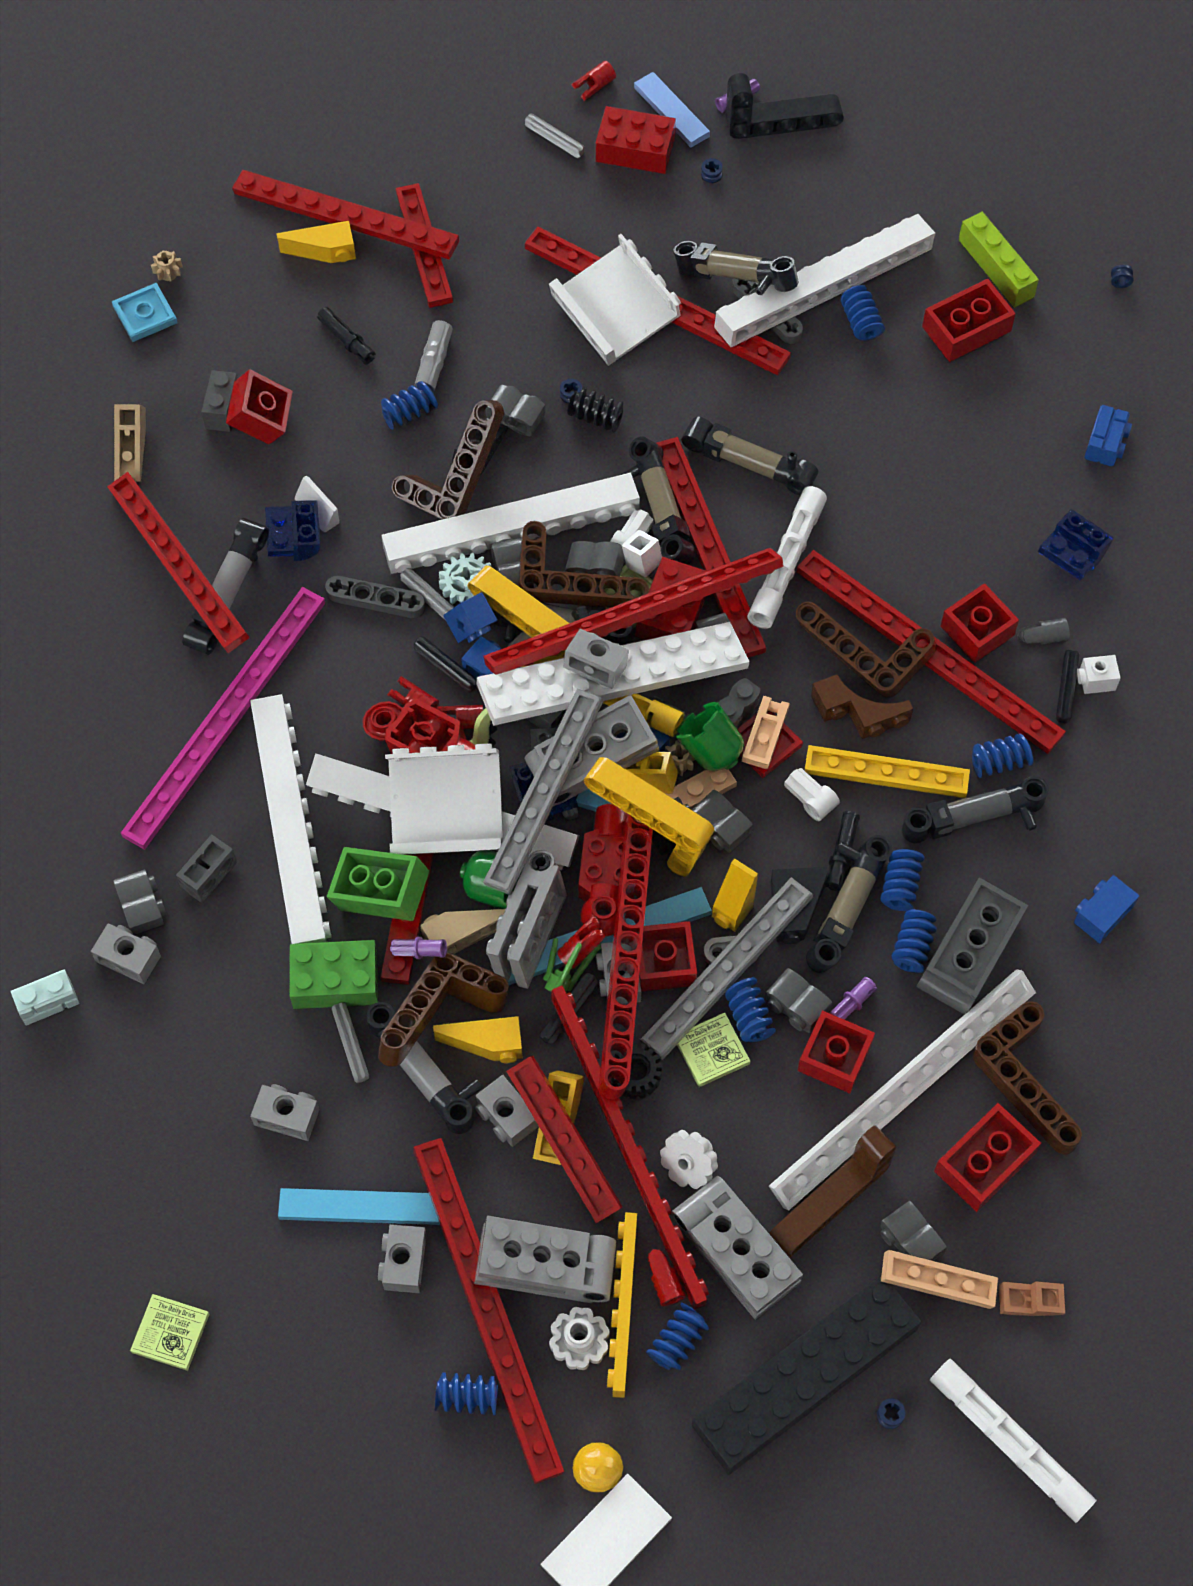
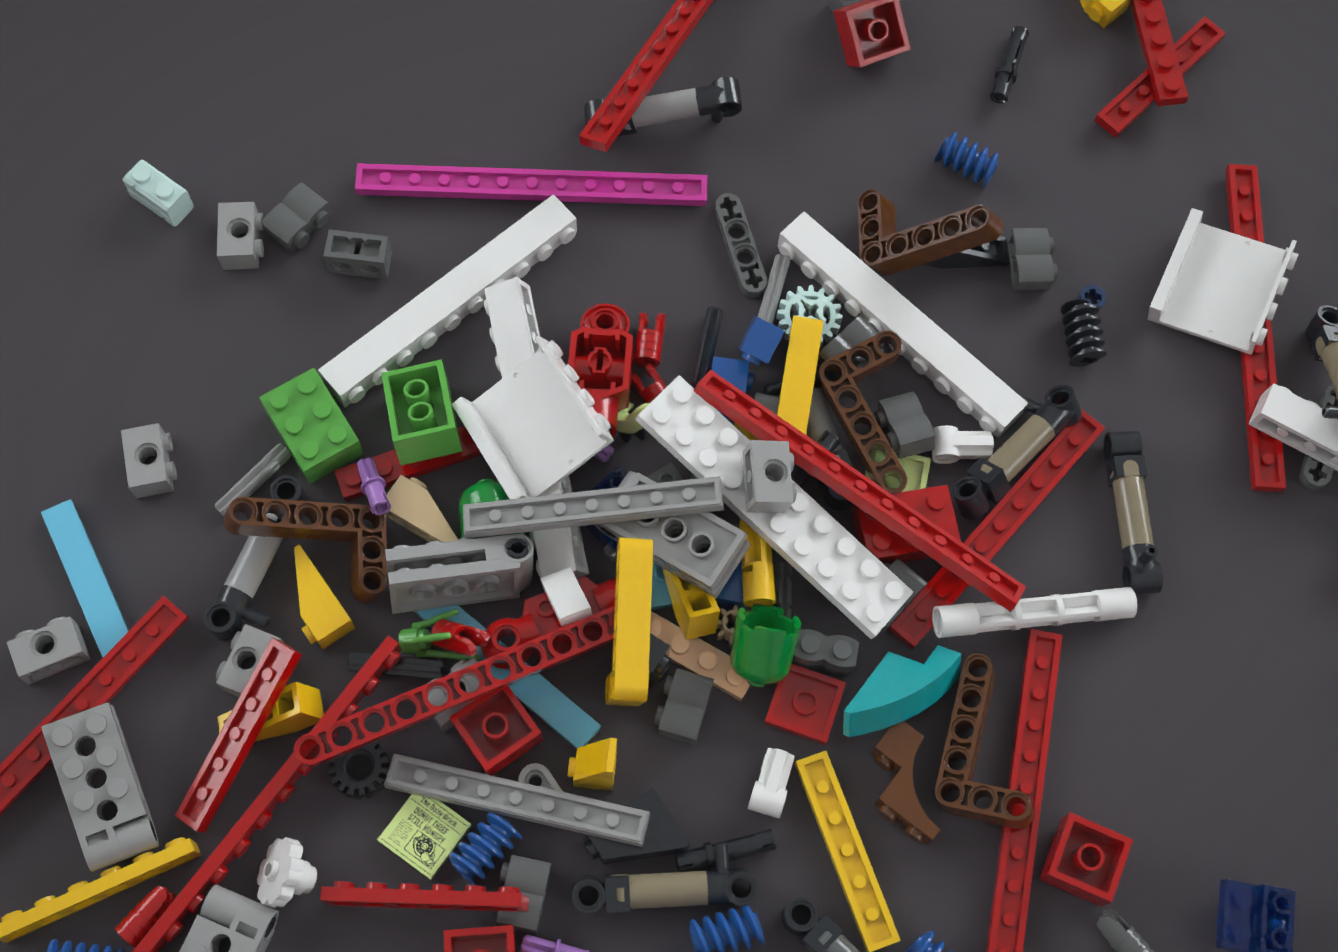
camera: 55 degrees right, 5 degrees up
(293, 530) = (761, 132): clear blue brick -> none
(327, 510) = (805, 141): white slope -> none
(434, 354) = (1040, 152): light grey axle -> none
(581, 1352) = (57, 865): white plant -> none
(598, 848) = (566, 596): none -> white tile
(642, 553) = (941, 463): white brick -> none
(759, 1075) = (440, 897): none -> red plate
(765, 733) = (808, 697): light nougat plate -> none
(795, 669) = (900, 690): none -> teal slope

